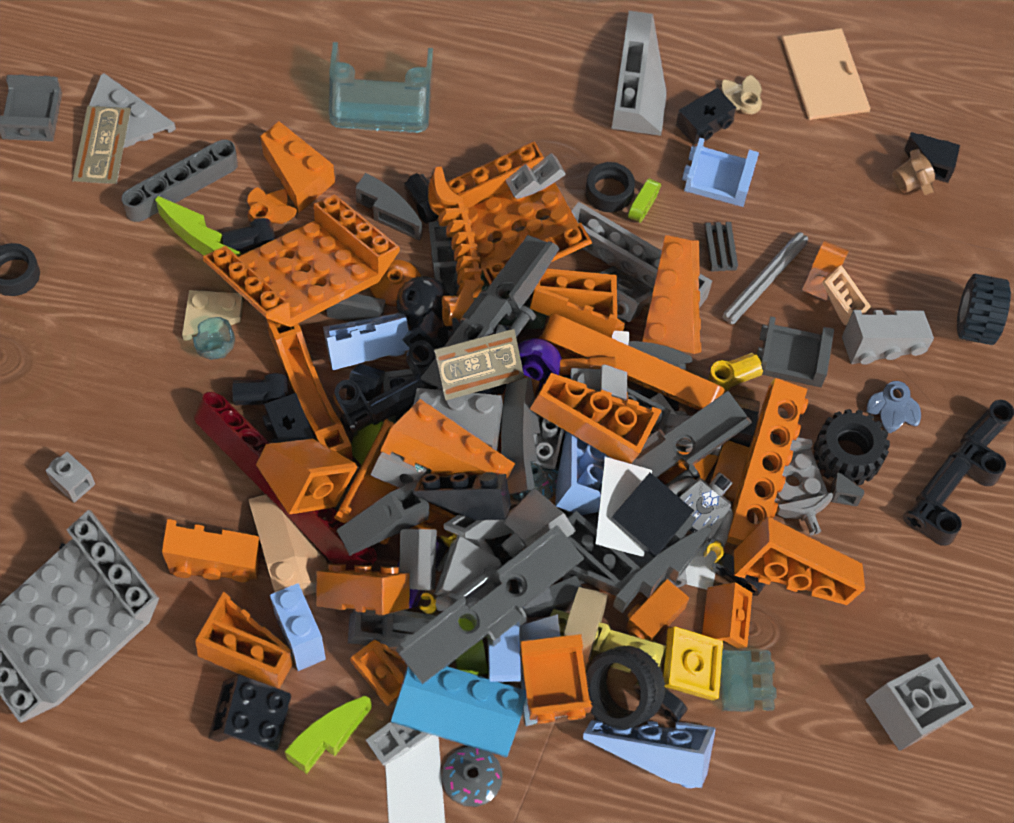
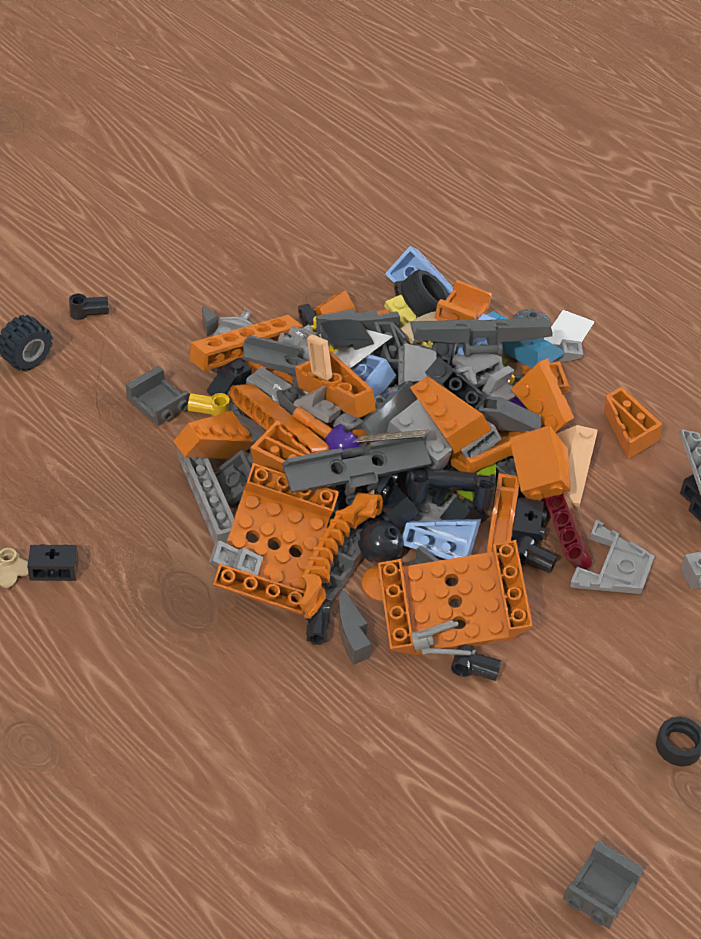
camera: 145 degrees left, 15 degrees down
(101, 144) = (554, 812): sticker -> none
(143, 118) = (519, 837): light grey wing -> none
(155, 437) = (623, 569): none -> light grey wing
(190, 227) = (517, 693): lime slope -> none
(194, 172) = (514, 734): dark grey beam -> none
(210, 304) = (543, 634): tan wing -> none
(211, 554) = (625, 477): orange wedge -> none
(214, 338) = (548, 601): clear light blue hair -> none
(250, 713) = (652, 395): black bracket -> none
(270, 206) = (441, 684): orange plate -> none
(297, 165) = (400, 695): orange wedge -> none
(298, 626) = (595, 402): light blue brick -> none
(307, 214) = (424, 639): none -> light grey plant
(327, 733) = (602, 367): lime slope -> none
(379, 103) = (318, 725): clear light blue windscreen -> none
(614, 171) = (174, 569): black tyre -> none
(627, 391) = (319, 357): none -> light nougat tile
(641, 79) = (68, 621): light grey wedge -> none
(644, 200) = (159, 532): lime beam -> none
(693, 663) = (375, 295): yellow plate -> none
(718, 228) = (133, 478): dark grey tile -> none
(719, 174) = (84, 520): light blue panel -> none
(738, 681) = (353, 284): clear light blue plate -> none
(765, 278) = (125, 447): light grey axle -> none
(799, 562) = (279, 293): orange wedge -> none
(826, 261) = (82, 421): orange brick -> none
(854, 295) = (96, 396): light nougat slope -> none
(860, 430) = (179, 329): black tyre -> none
(886, 336) = (95, 370): light grey wedge -> none
(894, 410) = (126, 345): sand blue plate -> none
(918, 703) = (270, 230): light grey slope -> none
(944, 483) = (172, 289): black piece -> none

